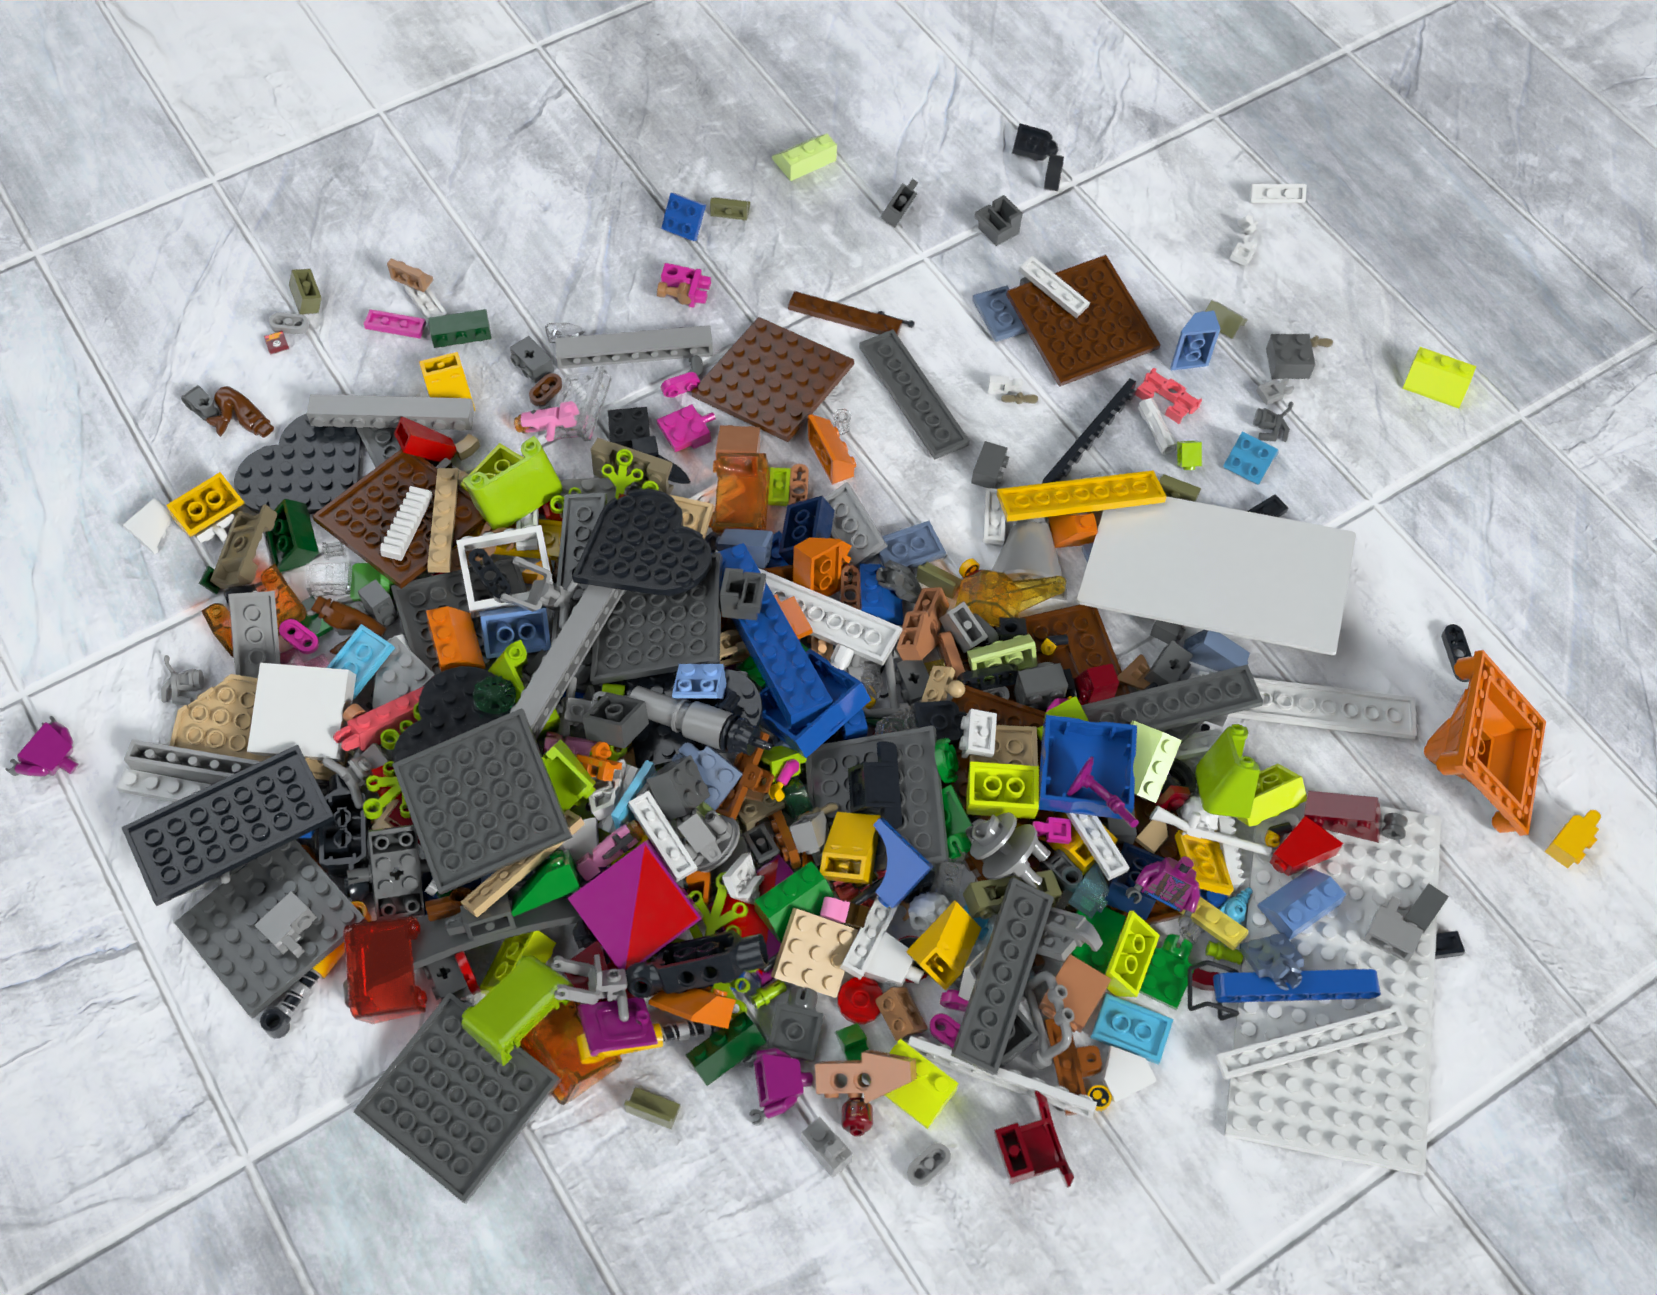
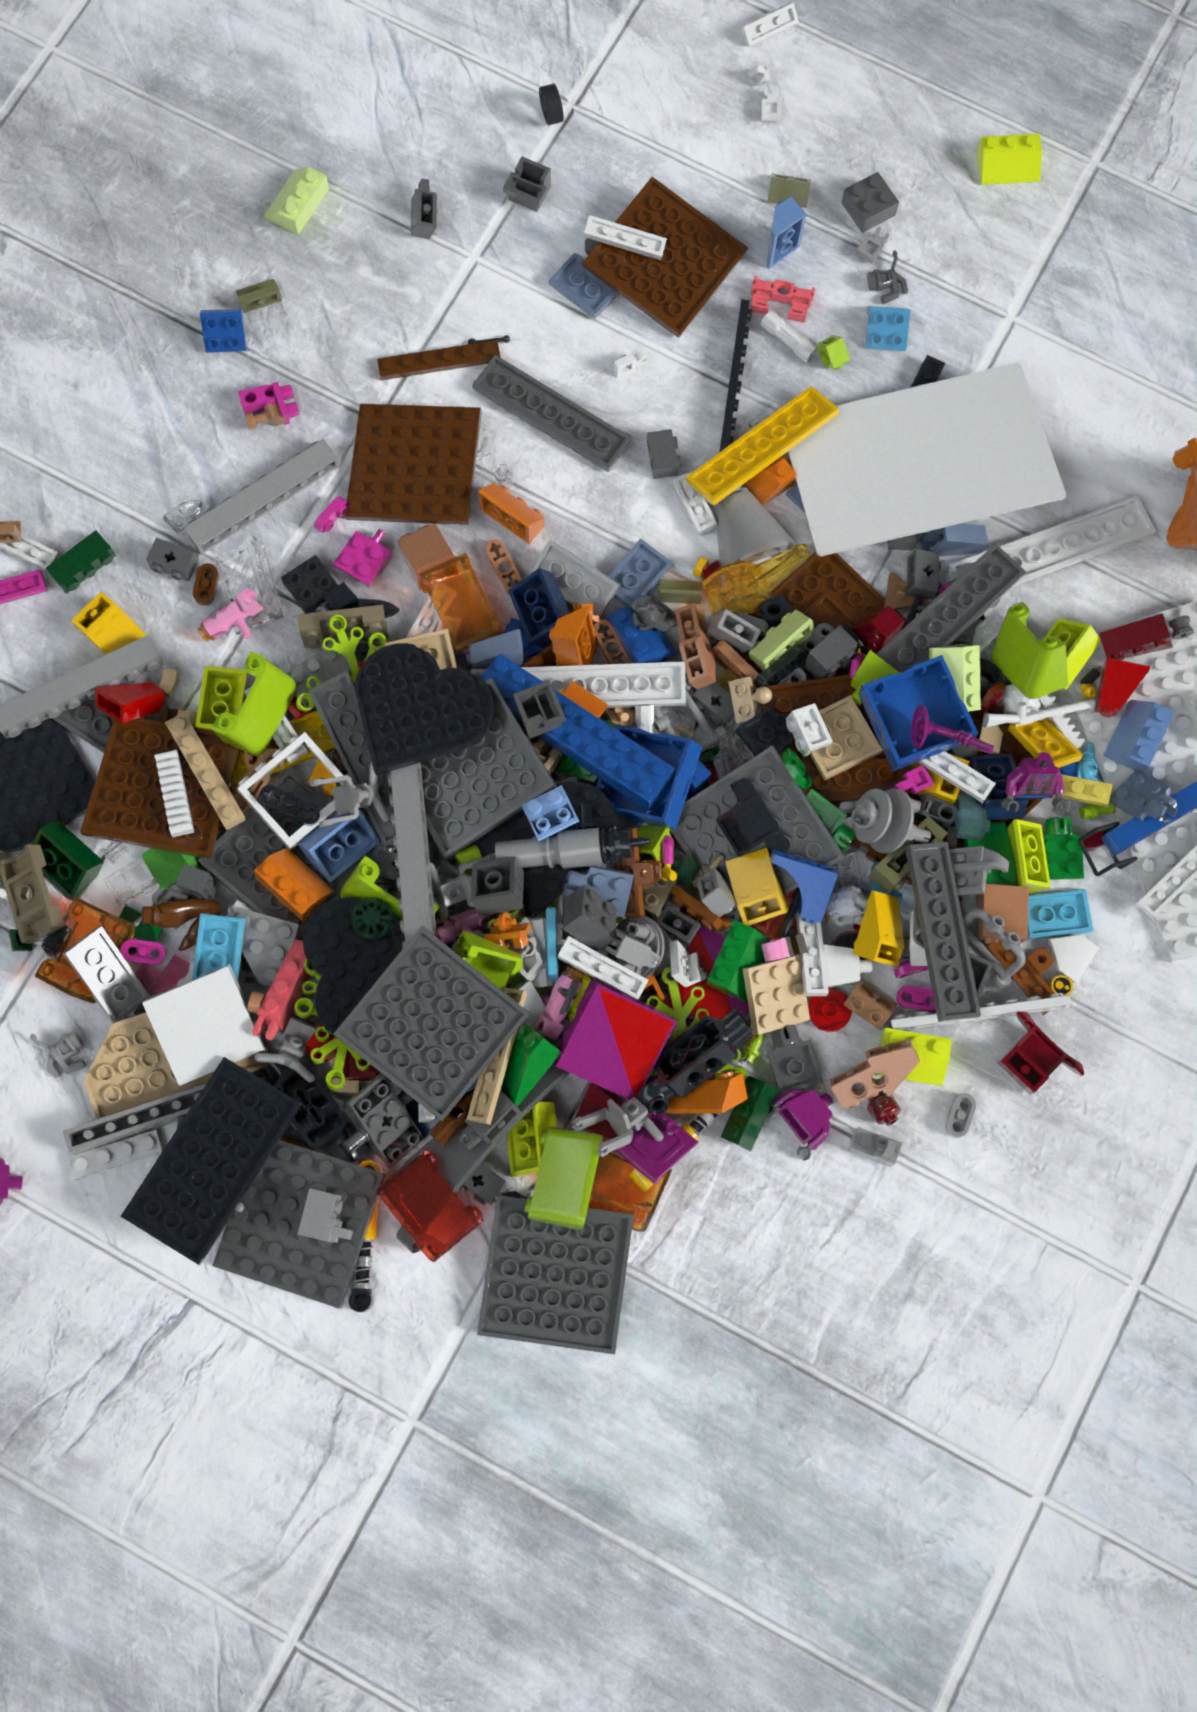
camera: 30 degrees left, 15 degrees up
(467, 972) = (500, 1170): red tile -> none
(583, 935) = (574, 1084): black plate -> none
(652, 1108) = (716, 1192): olive panel -> none
(696, 364) = (333, 486): dark grey arm -> none
(779, 486) = (486, 573): lime plate -> none
(852, 1041) = (846, 1050): green slope -> none
(1002, 789) = (857, 770): neon yellow slope -> none
(1020, 398) = (650, 368): dark tan piece -> none
(1034, 143) = (510, 76): black plate -> none
(1052, 642) = (812, 601): arm -> none
(1179, 489) = (841, 391): olive panel -> none
(1325, 342) = (890, 170): dark tan piece -> none
(1460, 643) = (1138, 424): black beam -> none

